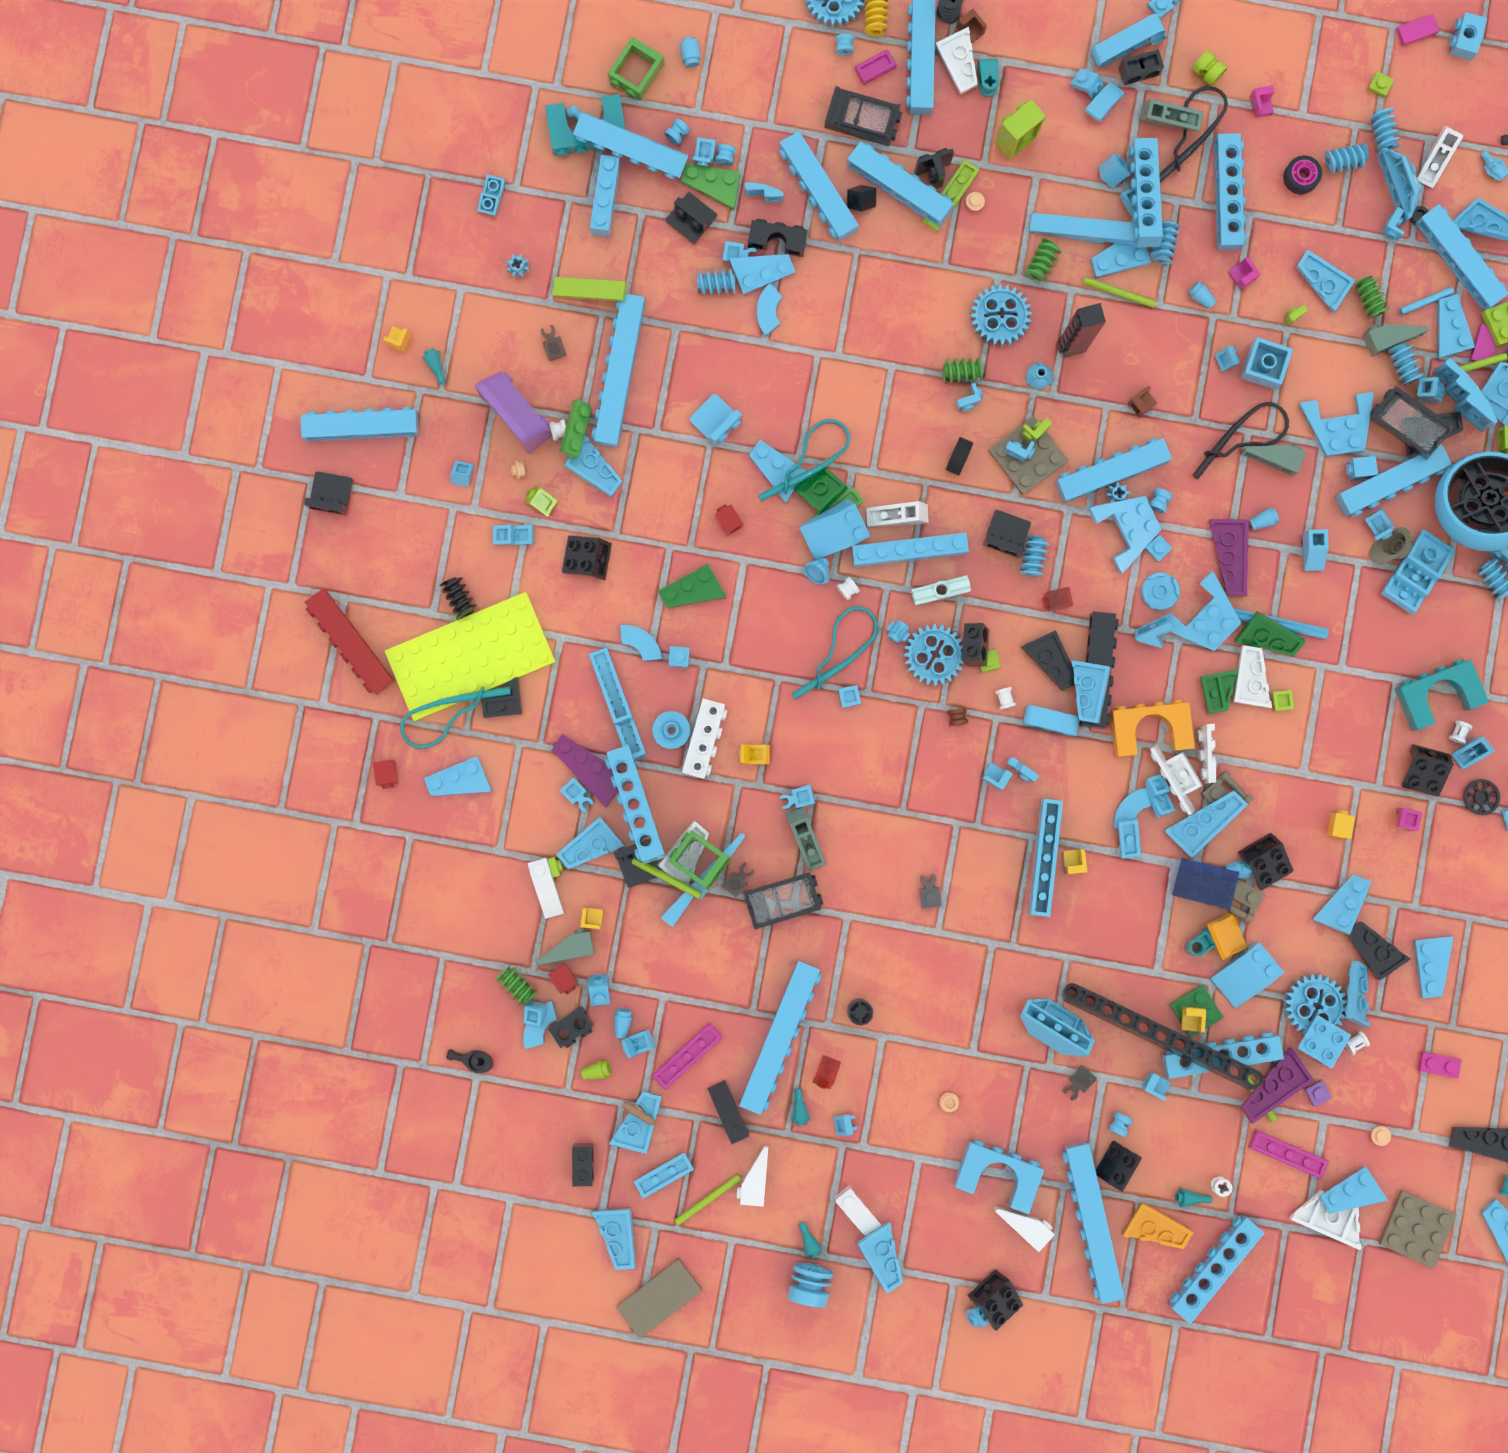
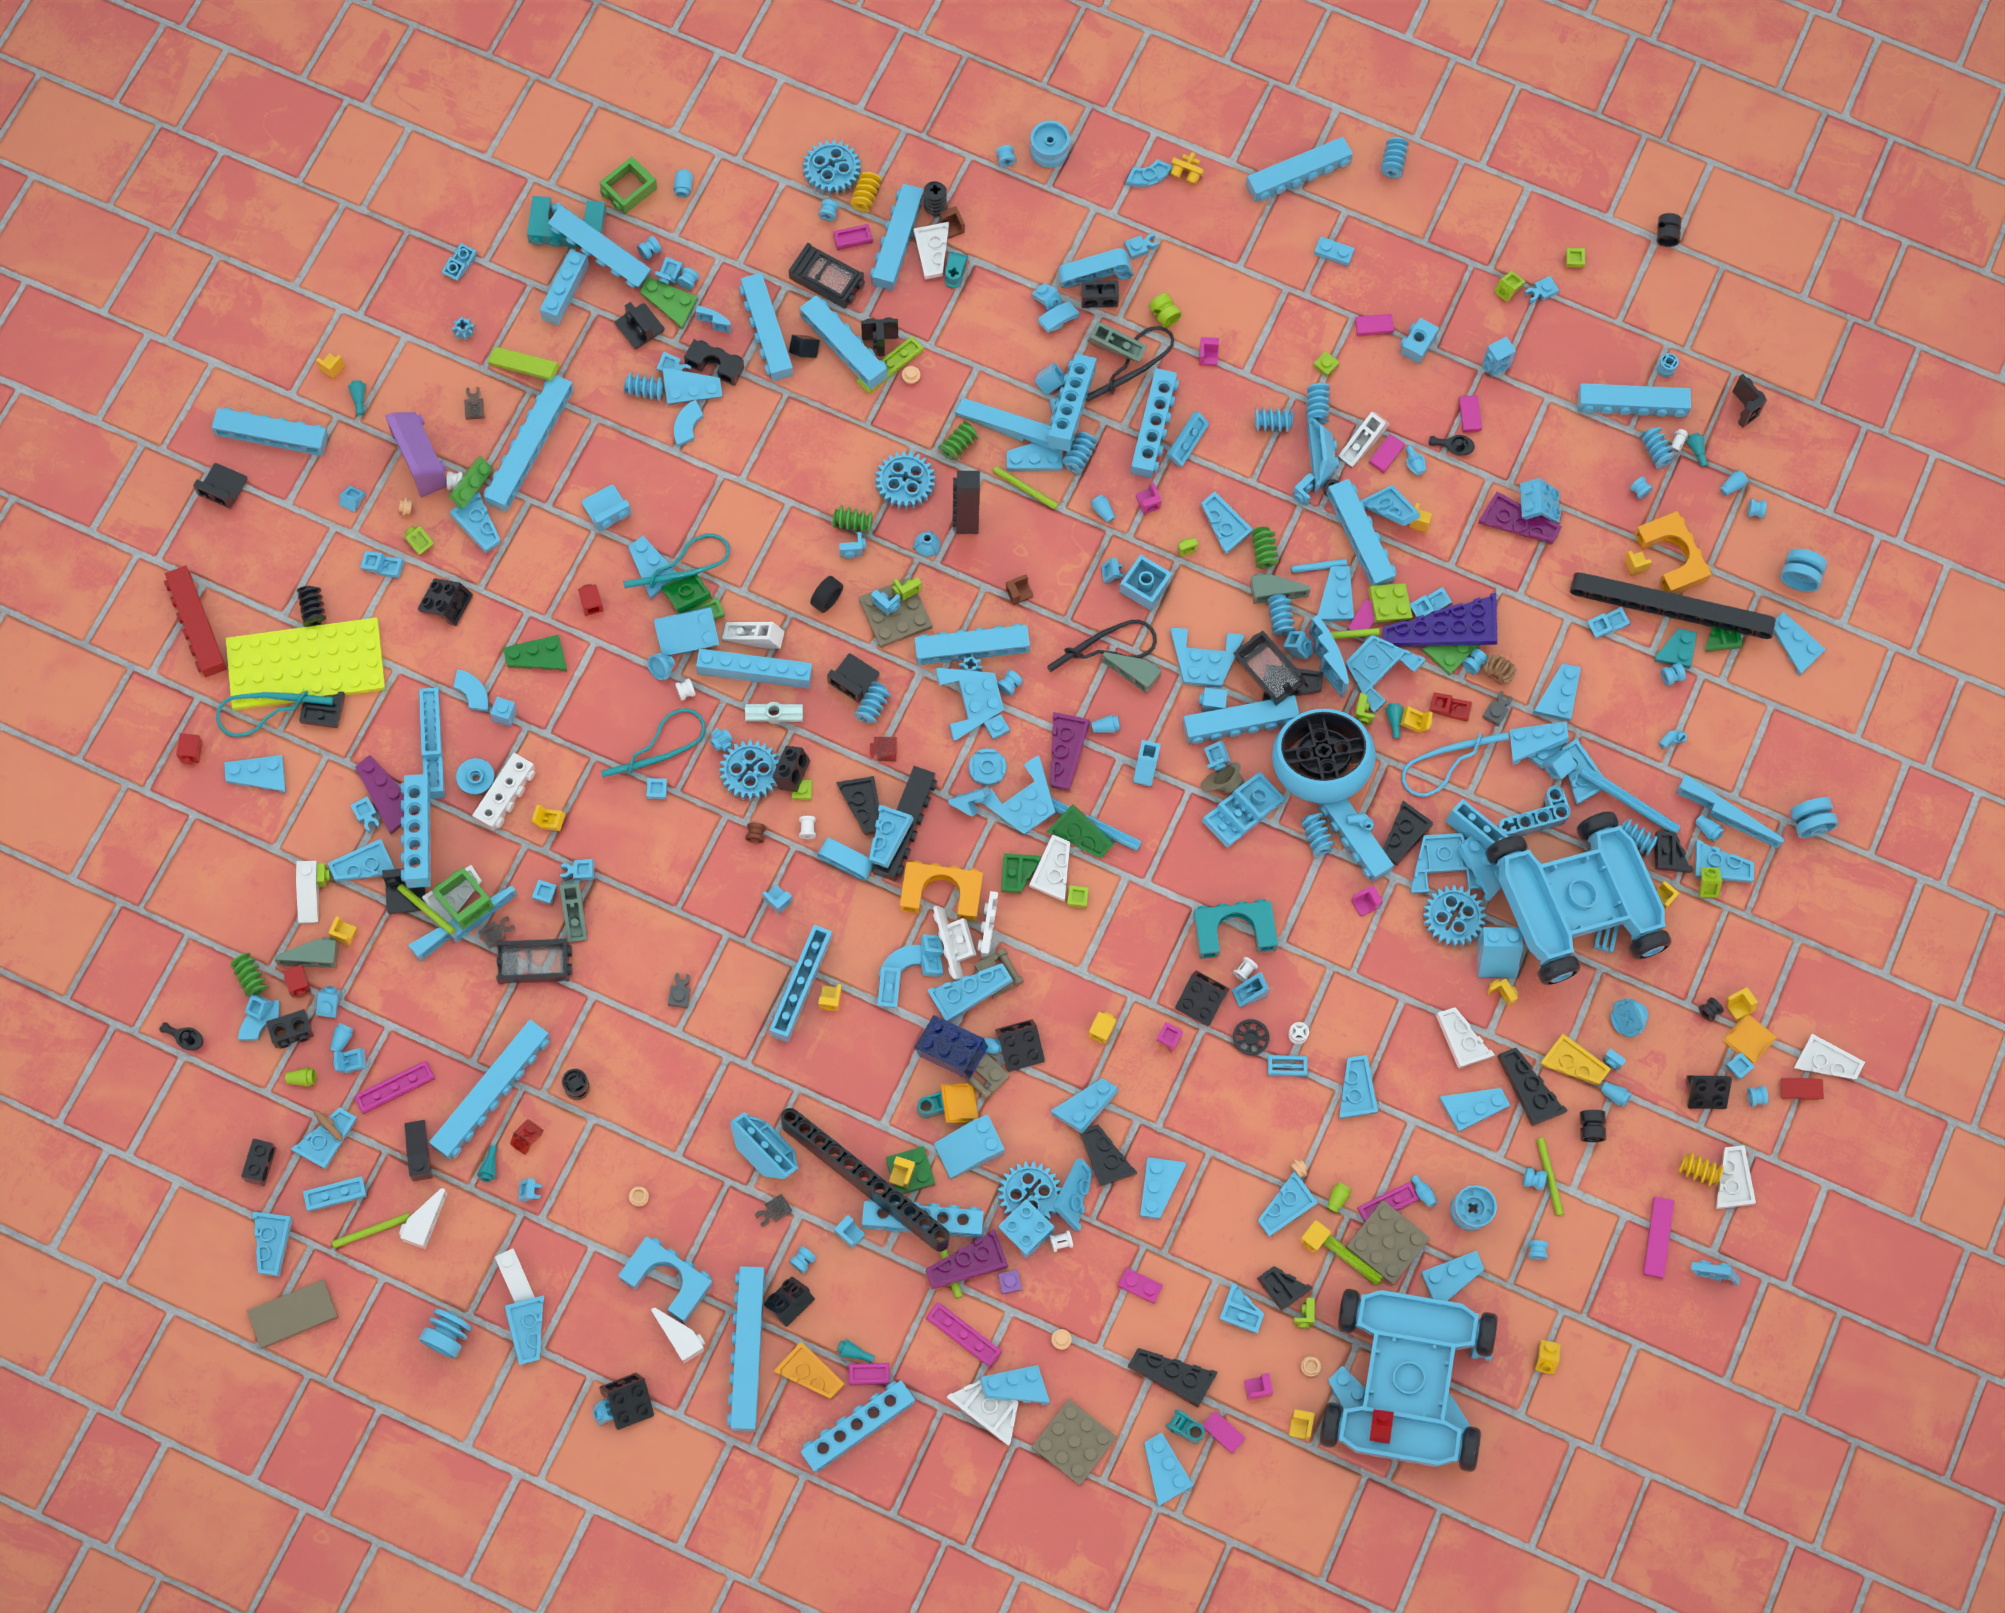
camera: 15 degrees right, 15 degrees down
(772, 828) = (544, 892): none -> medium azure plate
(811, 1246) = (459, 1302): teal cone -> none
(1020, 129) = (967, 318): lime brick -> none
(1025, 773) = (806, 900): medium azure plate -> none
(1211, 1214) = (869, 1374): none -> dark pink tile
(1221, 1192) = (884, 1340): white bush -> none
(1266, 200) = (1188, 439): none -> medium azure plate
(1309, 167) = (1229, 434): wheel -> none
(1463, 165) = (1386, 453): none -> dark pink tile

